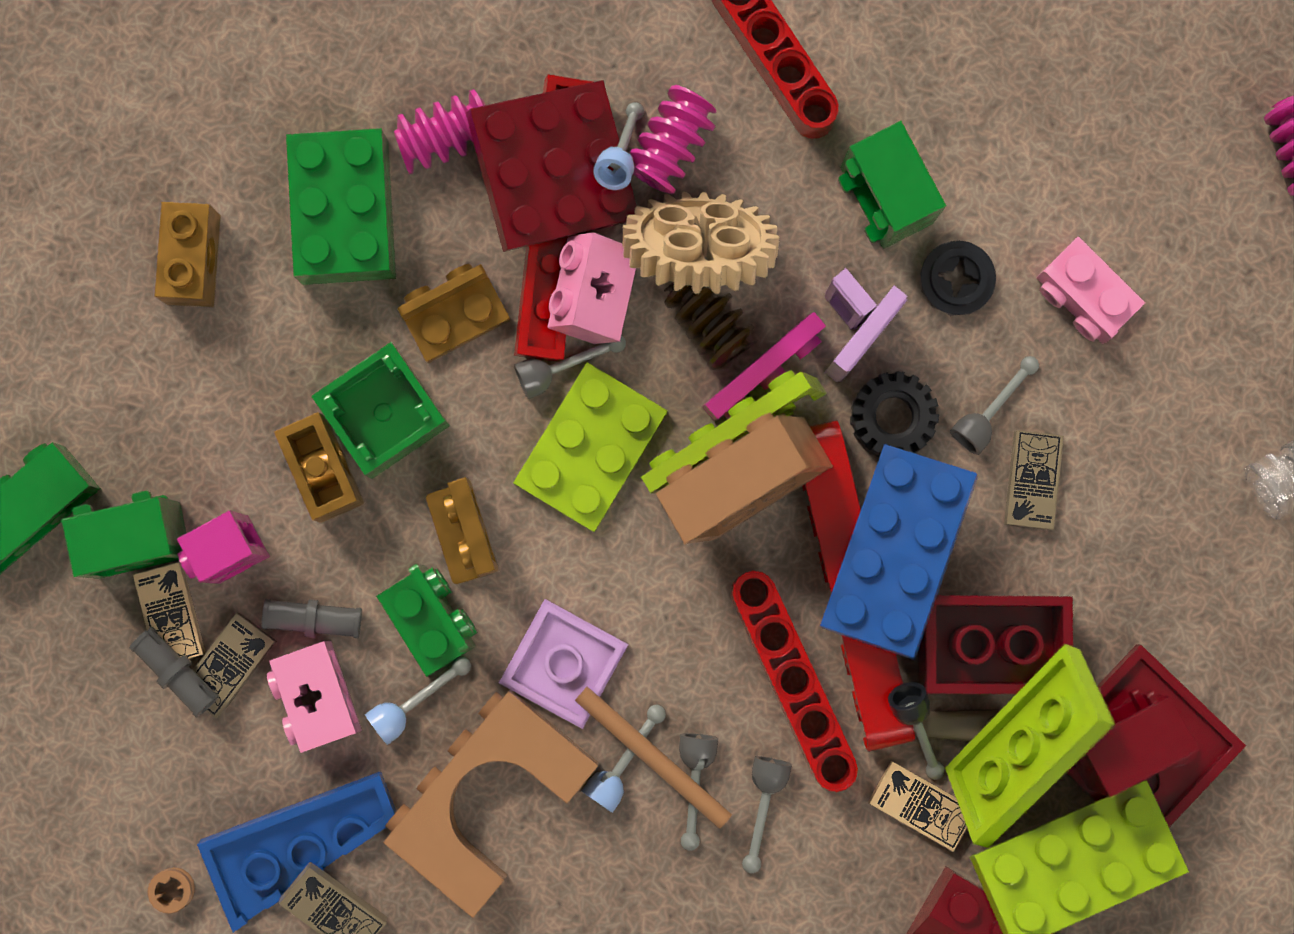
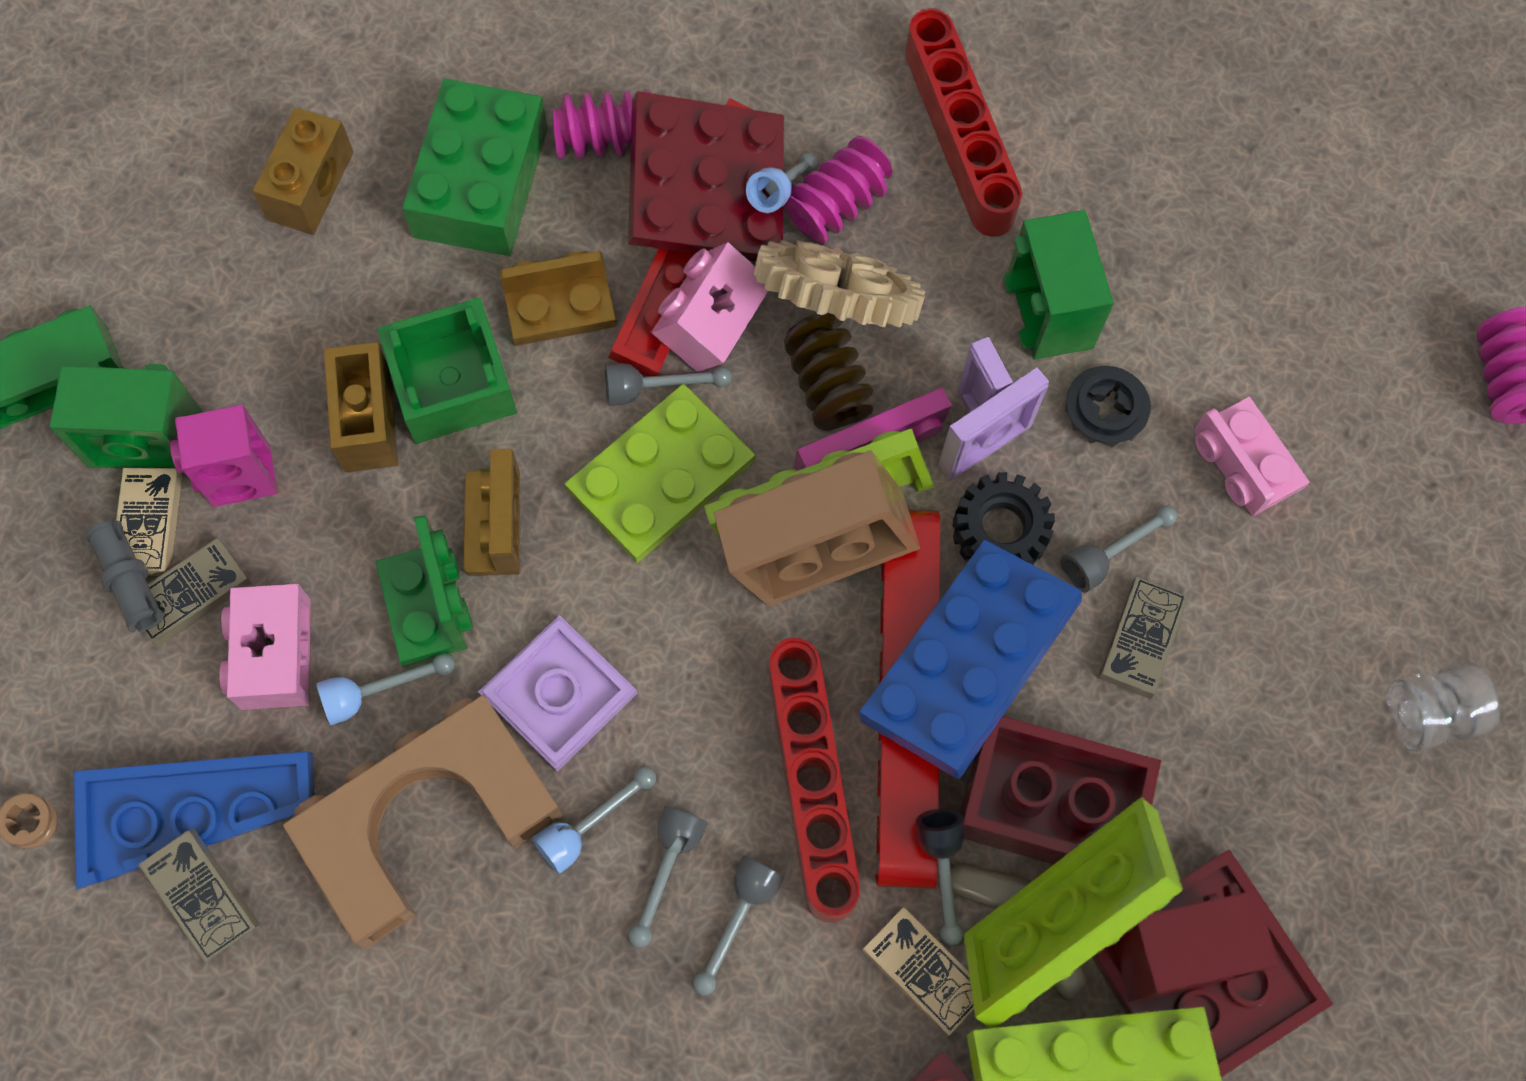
camera: 15 degrees right, 15 degrees down
(311, 618) = (296, 565): dark grey pin -> none
(653, 757) = (626, 822): medium nougat bar -> none

